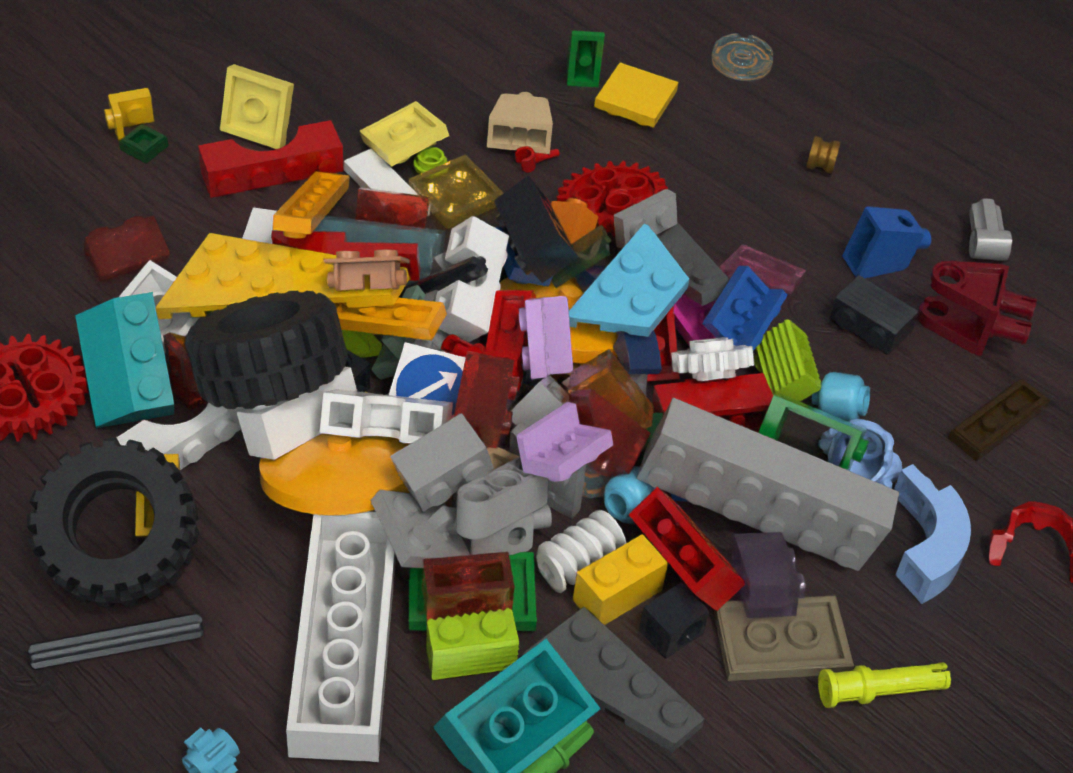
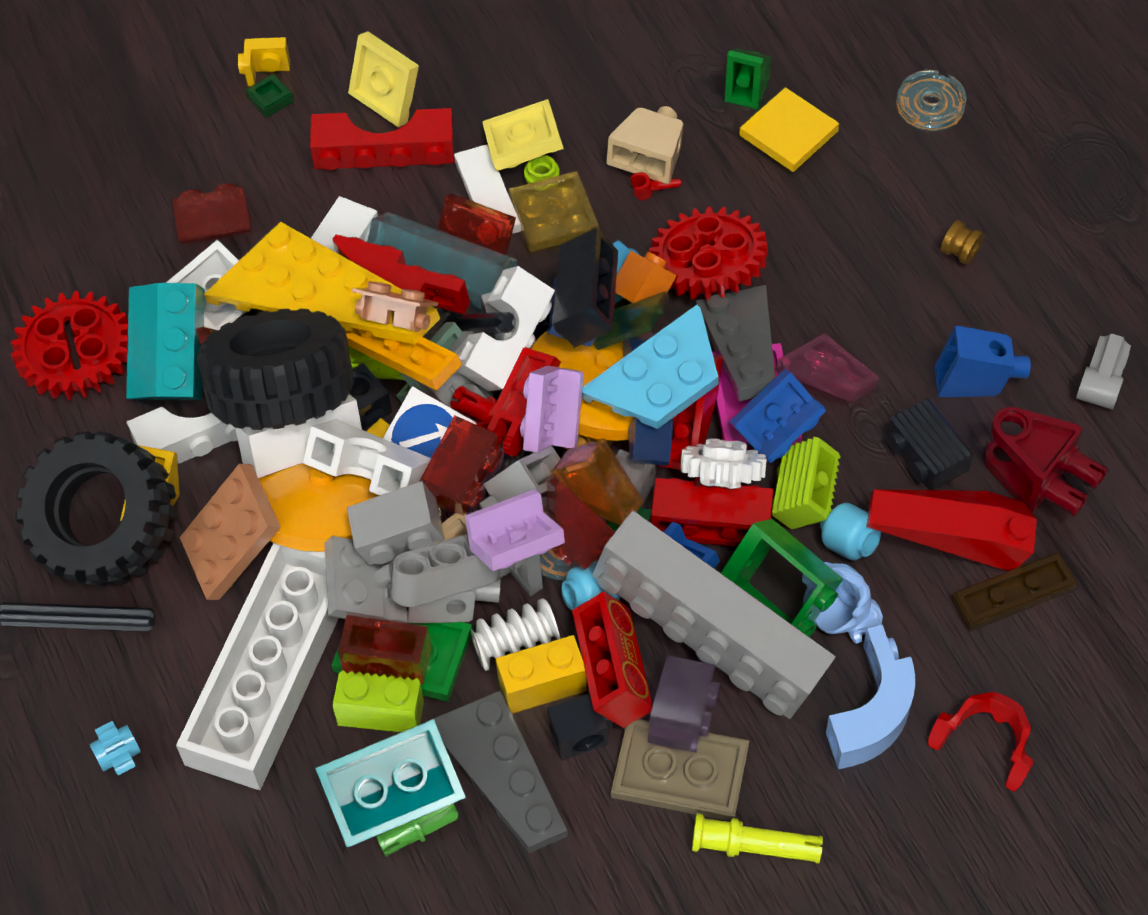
camera: 25 degrees right, 10 degrees up
(262, 516) = (229, 532): none -> nougat plate
(310, 204) = (386, 208): light orange plate -> none
(656, 211) = (724, 288): light grey plate -> none
(936, 370) = (960, 522): none -> red wedge

